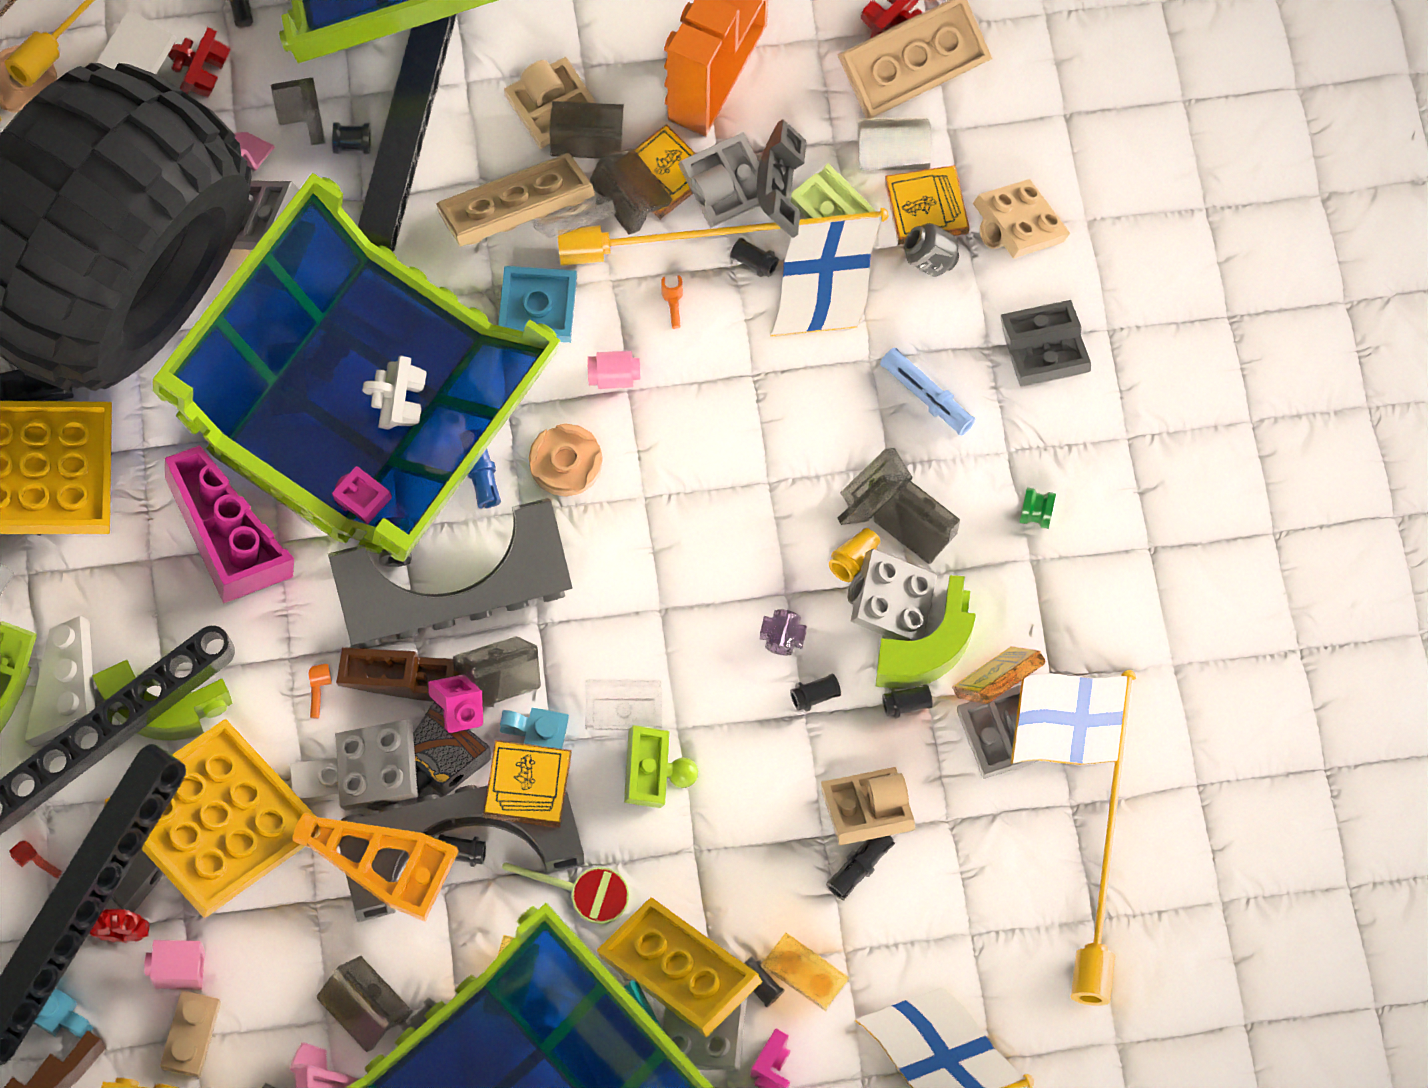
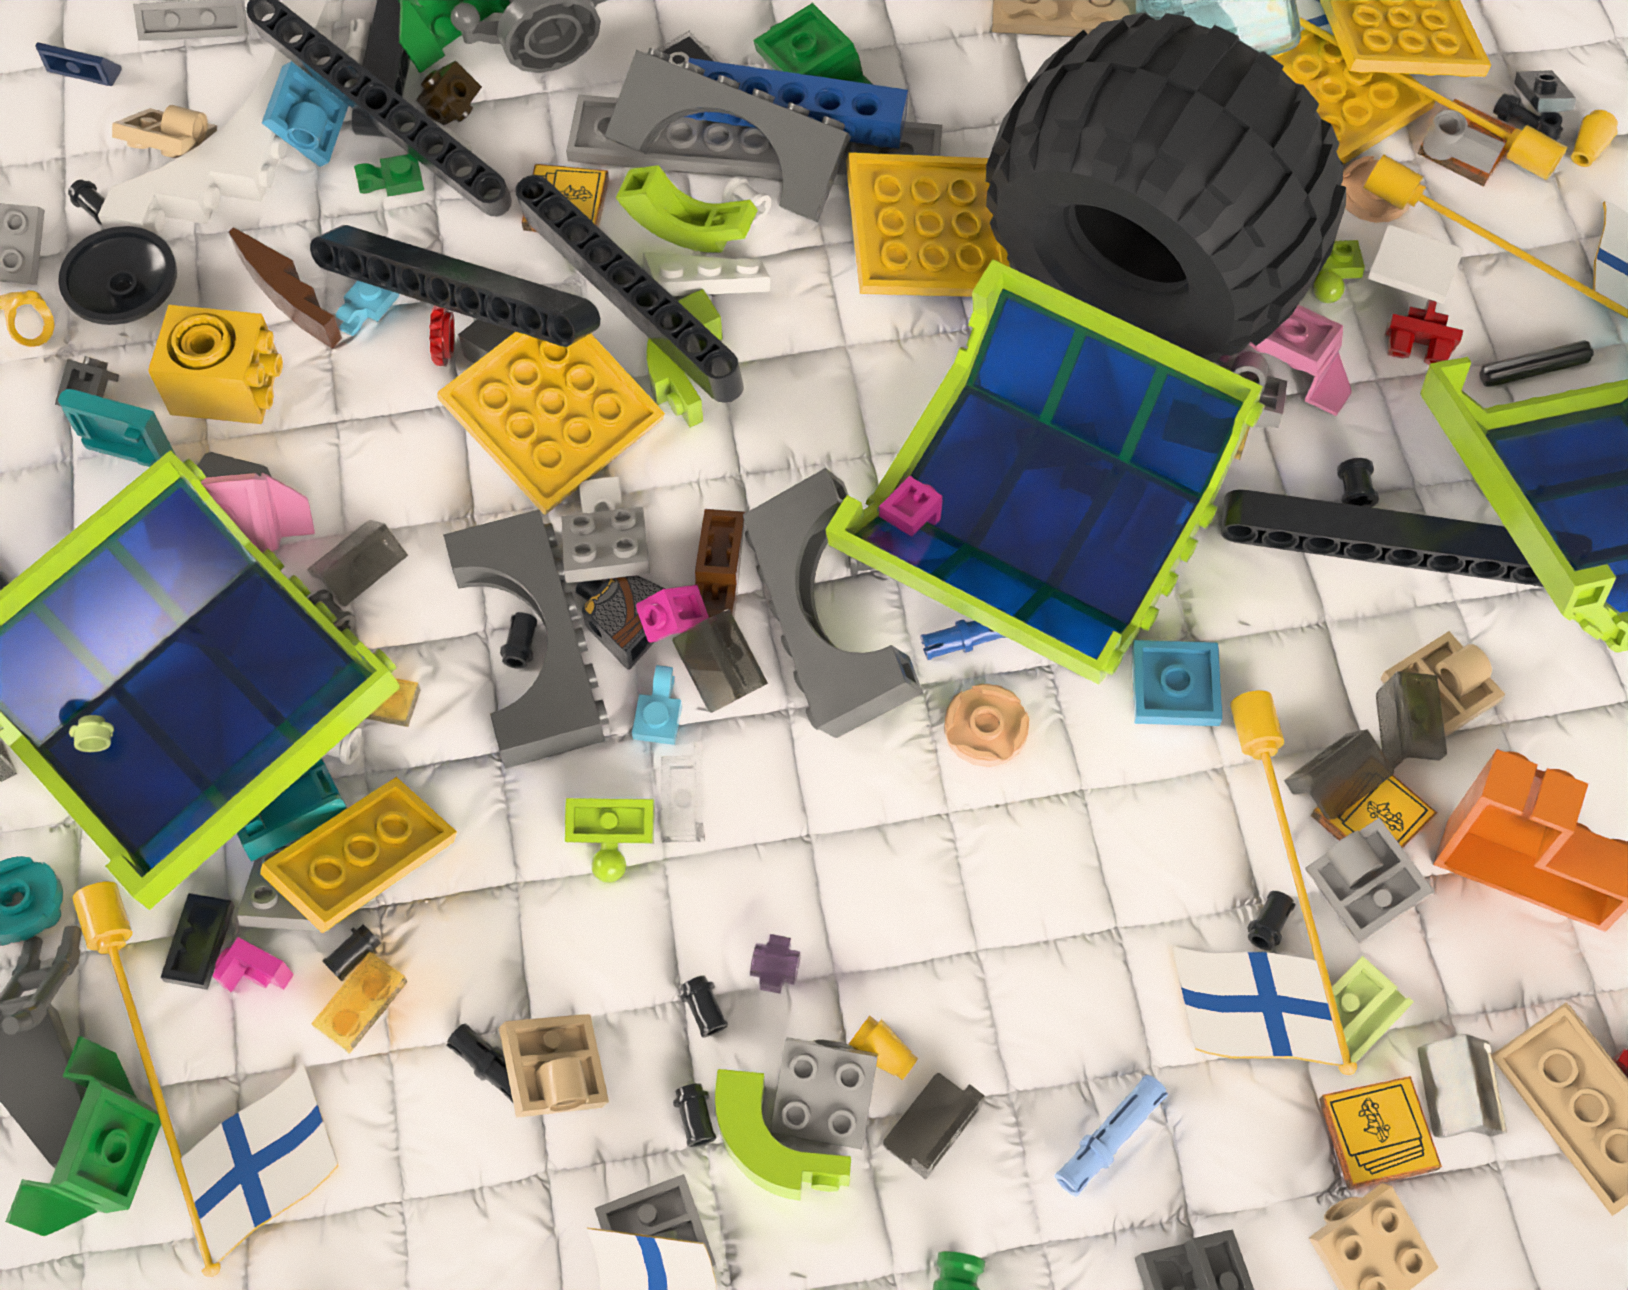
camera: 90 degrees right, 5 degrees down
(25, 852) = (528, 262): clear red hand -> none
(175, 964) = (403, 392): bright pink brick -> none
(190, 1034) = (337, 413): tan plate -> none
(229, 536) = (872, 392): dark pink wedge -> none
(298, 102) = (1381, 425): clear smoke panel -> none
(319, 676) = (713, 494): orange hand -> none
(390, 390) = (1055, 533): white hips -> none
(420, 879) = (479, 591): light orange plate -> none
(515, 199) = (1303, 648): tan piece -> none
(527, 784) = (576, 687): yellow tile -> none
(574, 217) = (1289, 706): clear tile -> none
(597, 894) = (470, 781): piece -> none
(613, 369) = (1100, 765): bright pink brick -> none
(673, 296) = (1207, 831): orange hand -> none
(780, 158) = (1377, 937): dark grey slope -> none
(874, 487) = (964, 1061): clear smoke panel -> none
(931, 249) = (1309, 1133): dark grey head -> none
(999, 674) = (718, 1220): tile -> none

